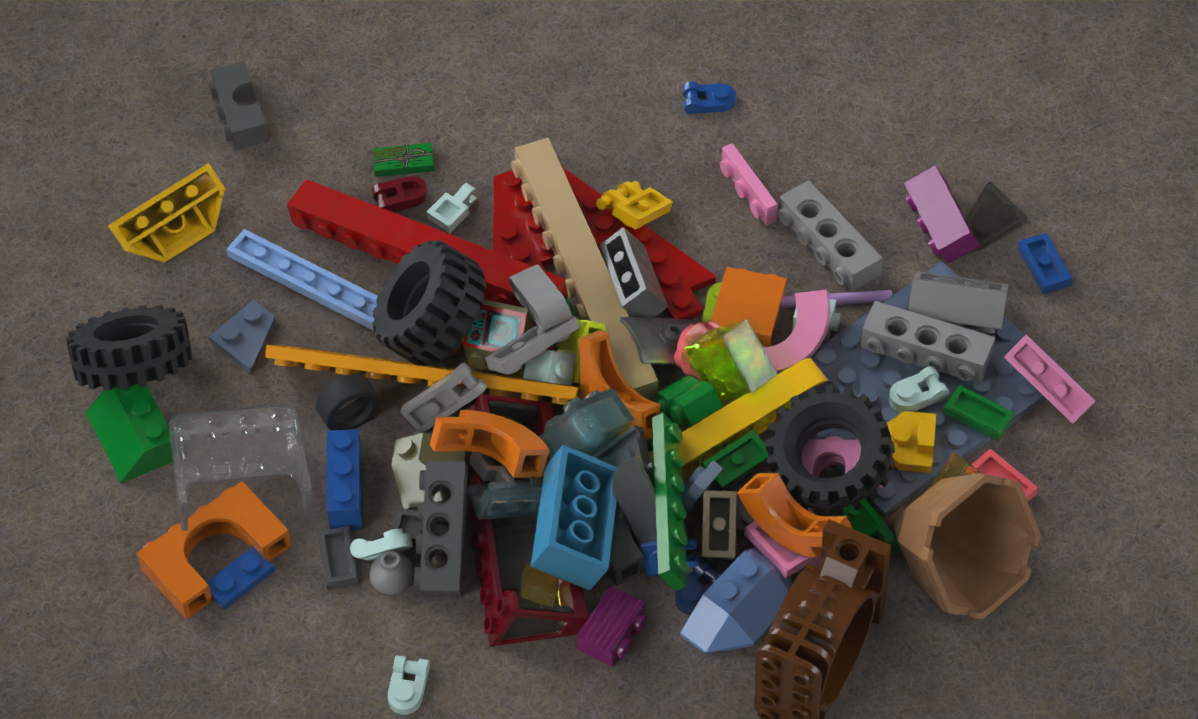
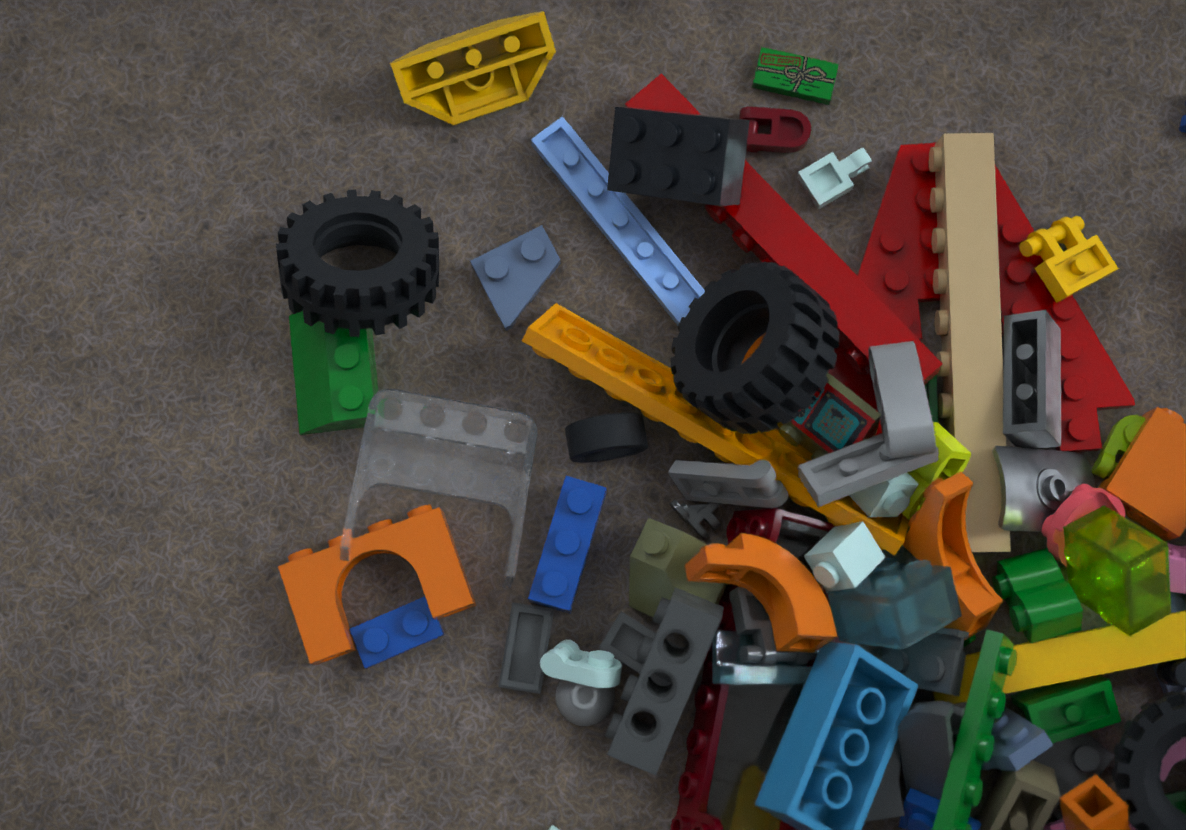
camera: 20 degrees right, 25 degrees up
(334, 215) = (678, 155): none -> black brick
(539, 407) = (844, 557): none -> light aqua brick

